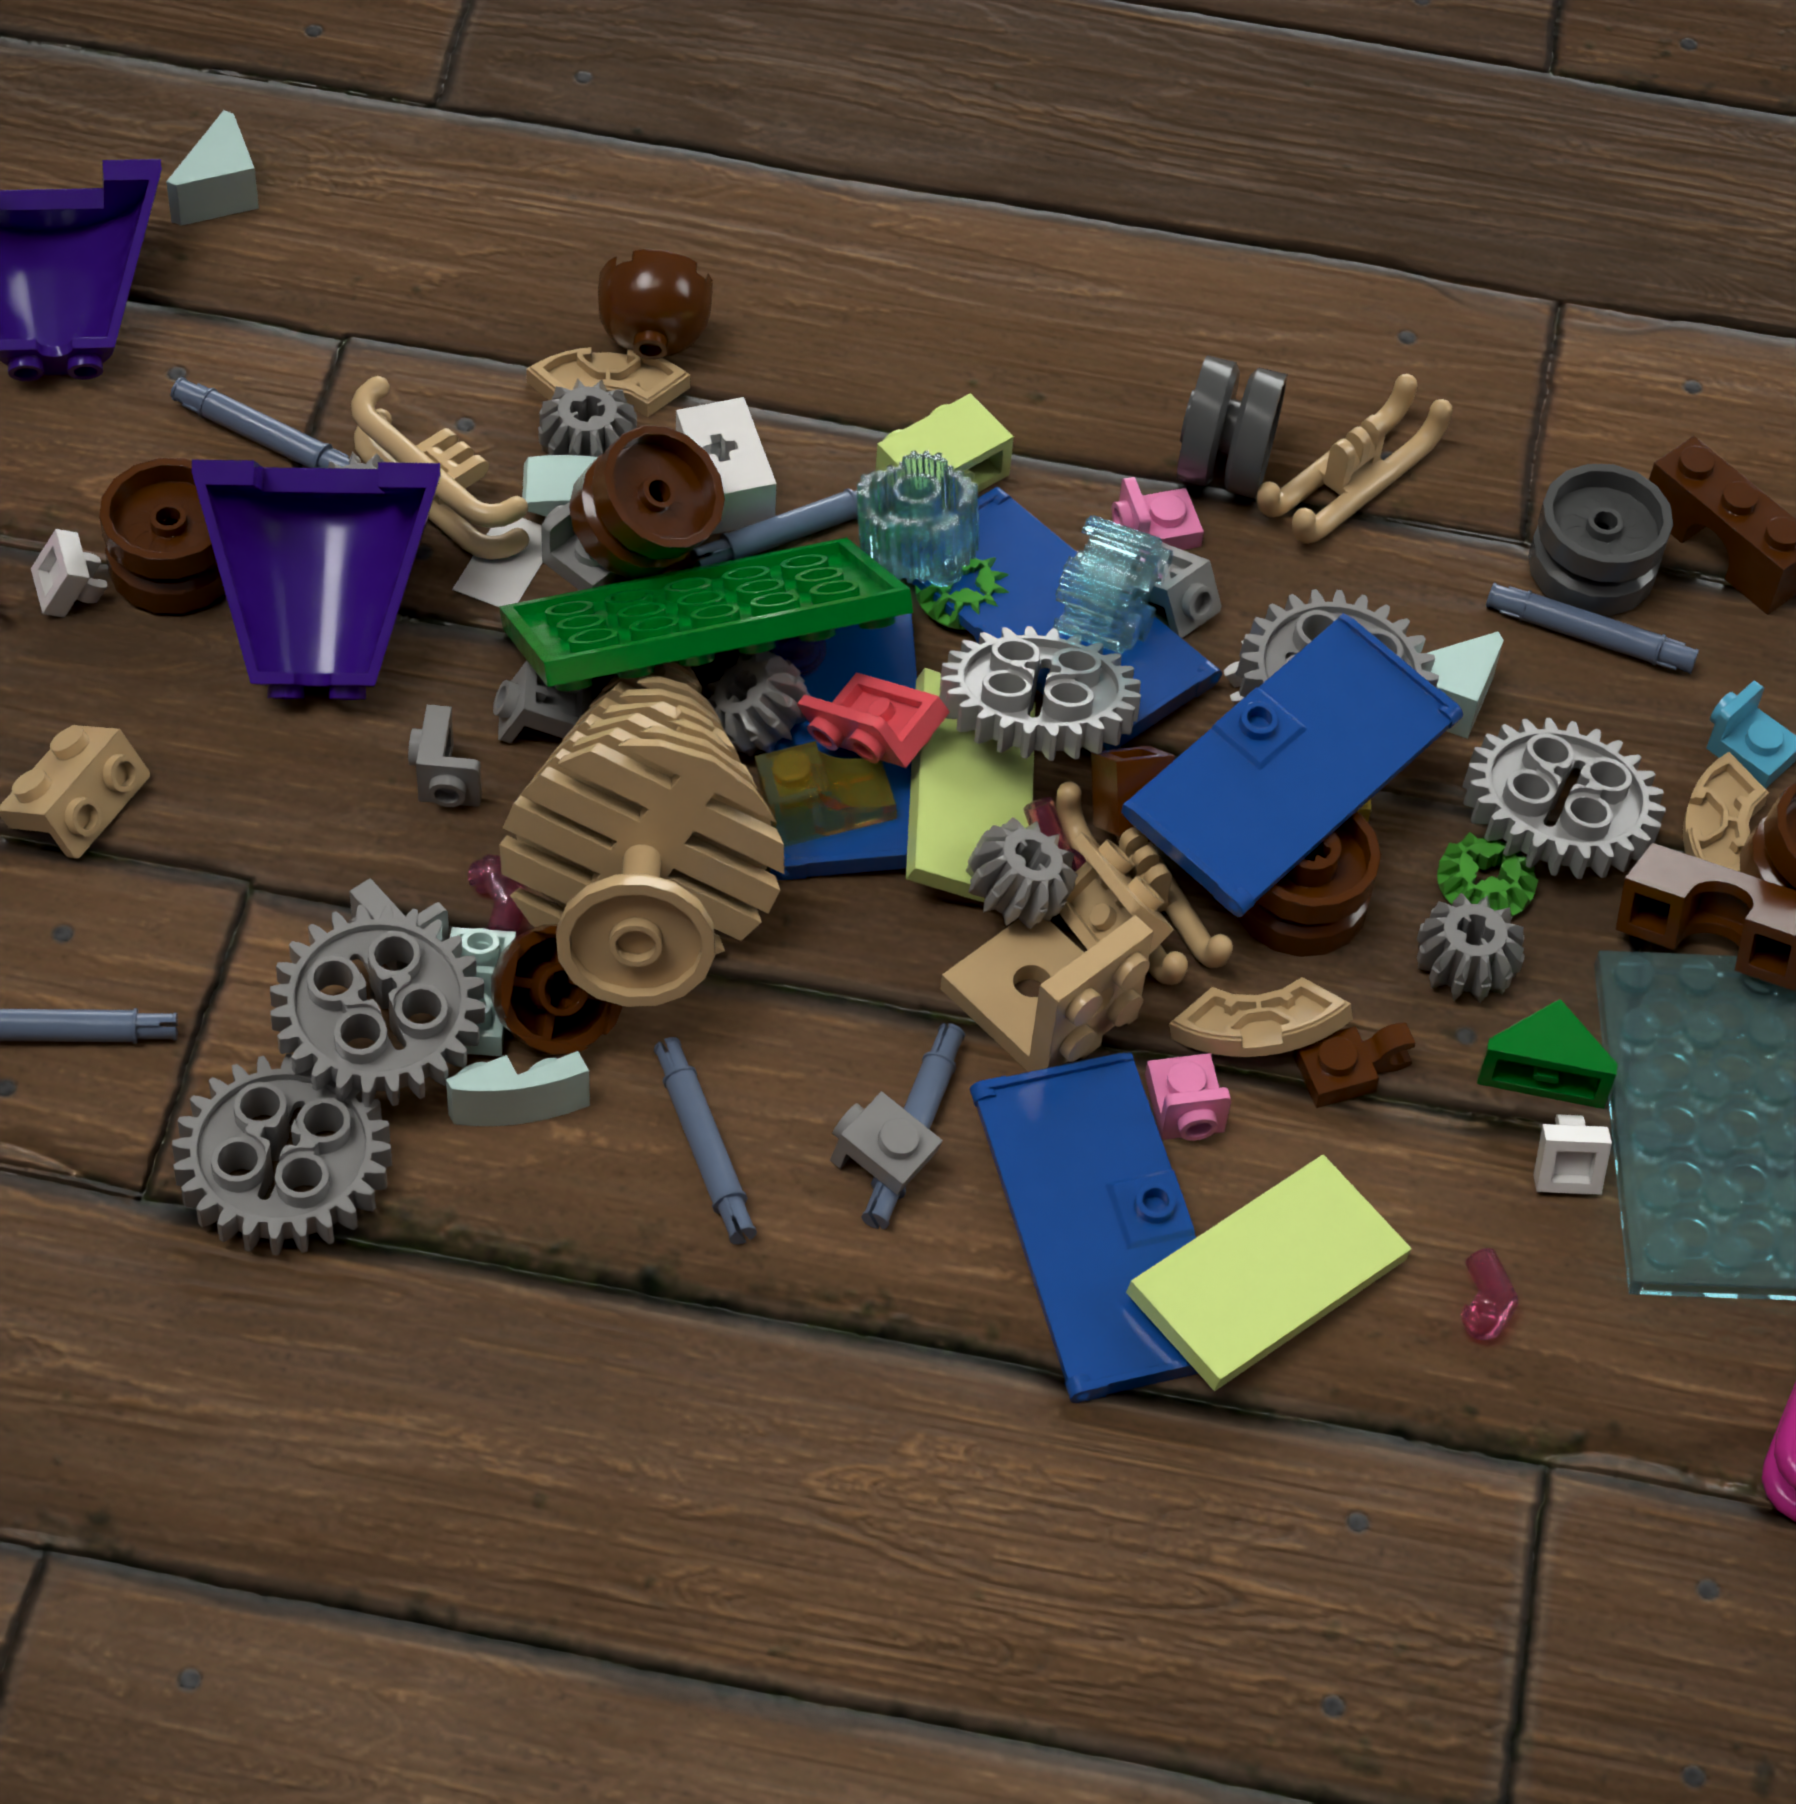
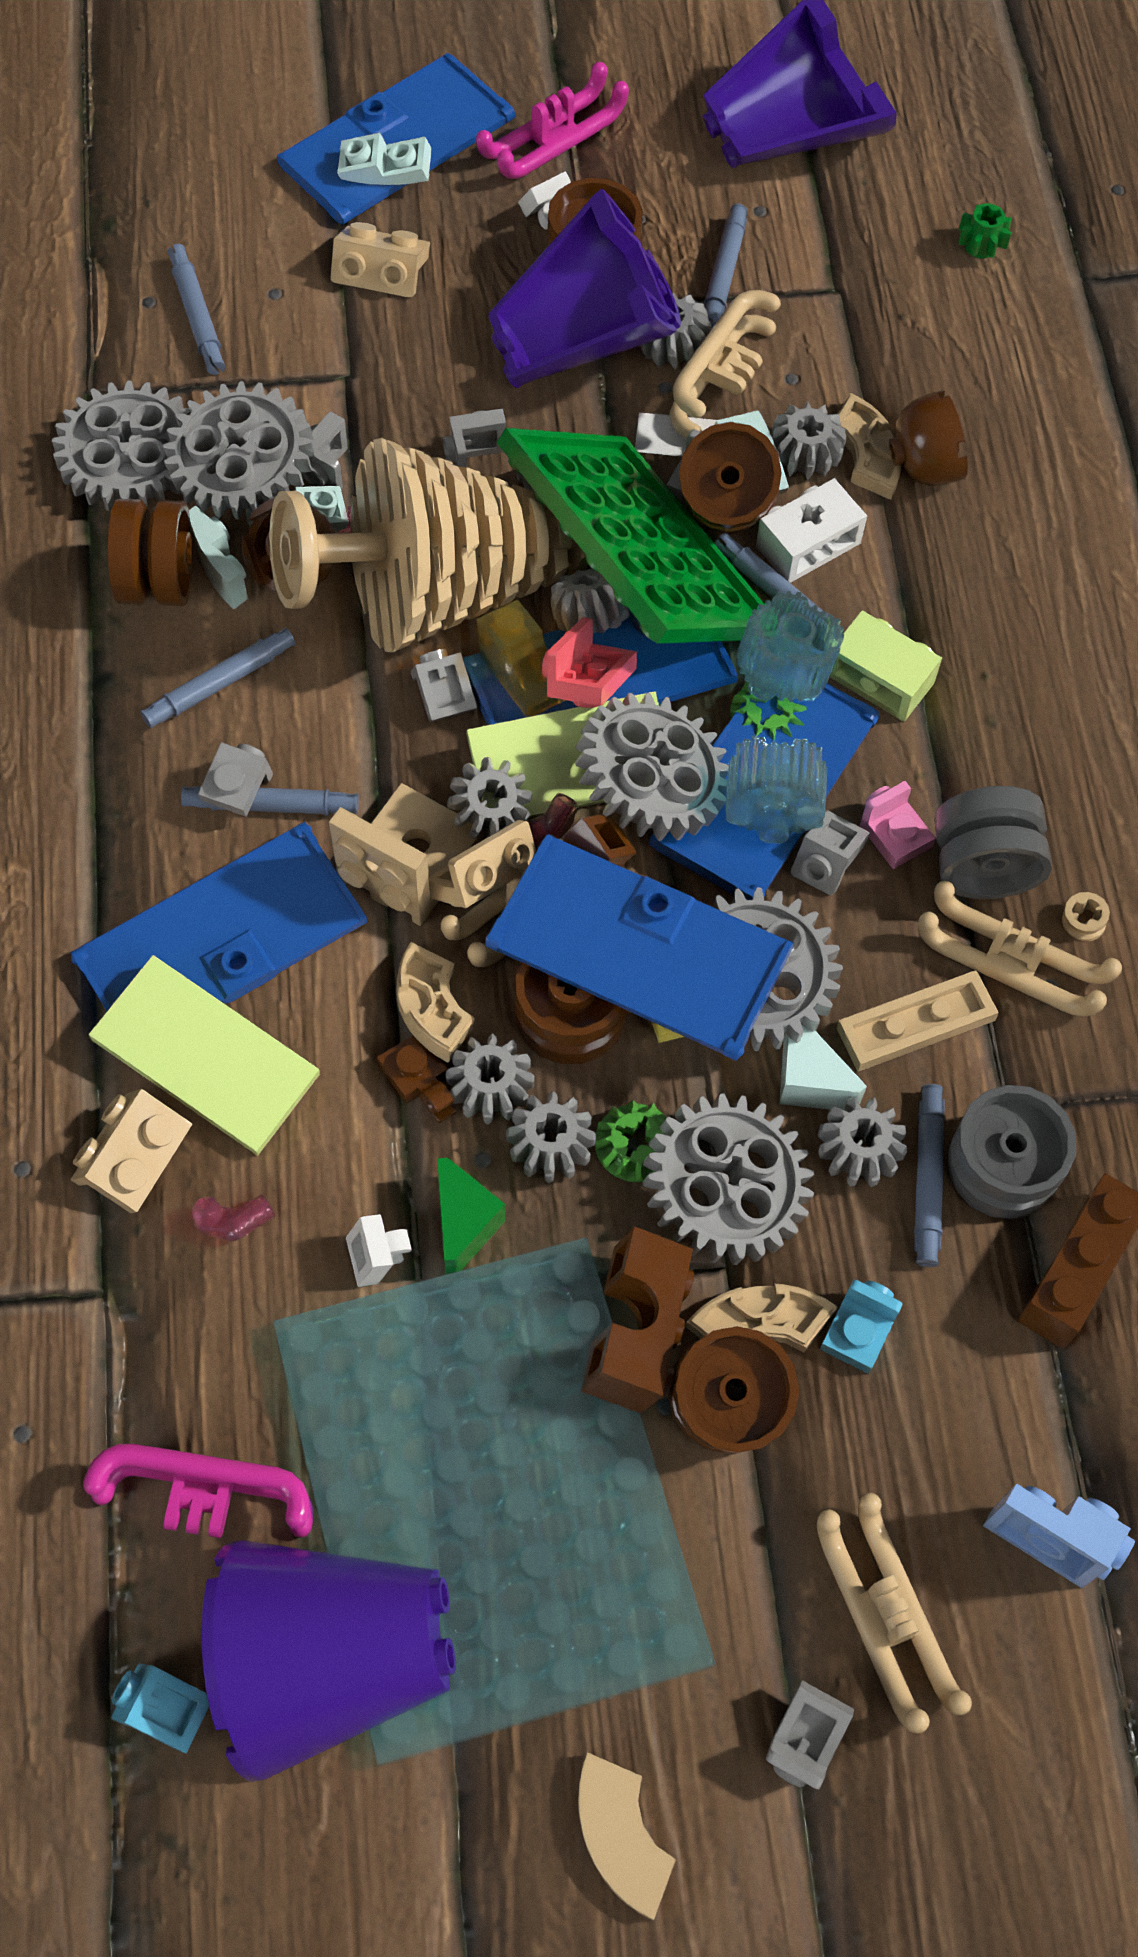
camera: 75 degrees right, 10 degrees up
(214, 176) = (937, 168): light aqua slope -> none
(339, 162) = (985, 231): none -> green gear
(508, 1144) = (150, 552): none -> reddish brown wheel
(816, 891) = (443, 685): none -> light grey bracket
(1187, 1097) = (349, 970): bright pink bracket -> none
(1319, 382) = (1078, 904): none -> tan bush
(1371, 1385) = (130, 1149): none -> tan bracket
(1383, 983) = (488, 1061): none -> light grey gear
(1411, 570) = (917, 1020): none -> tan plate
(1547, 667) = (852, 1157): none -> light grey gear

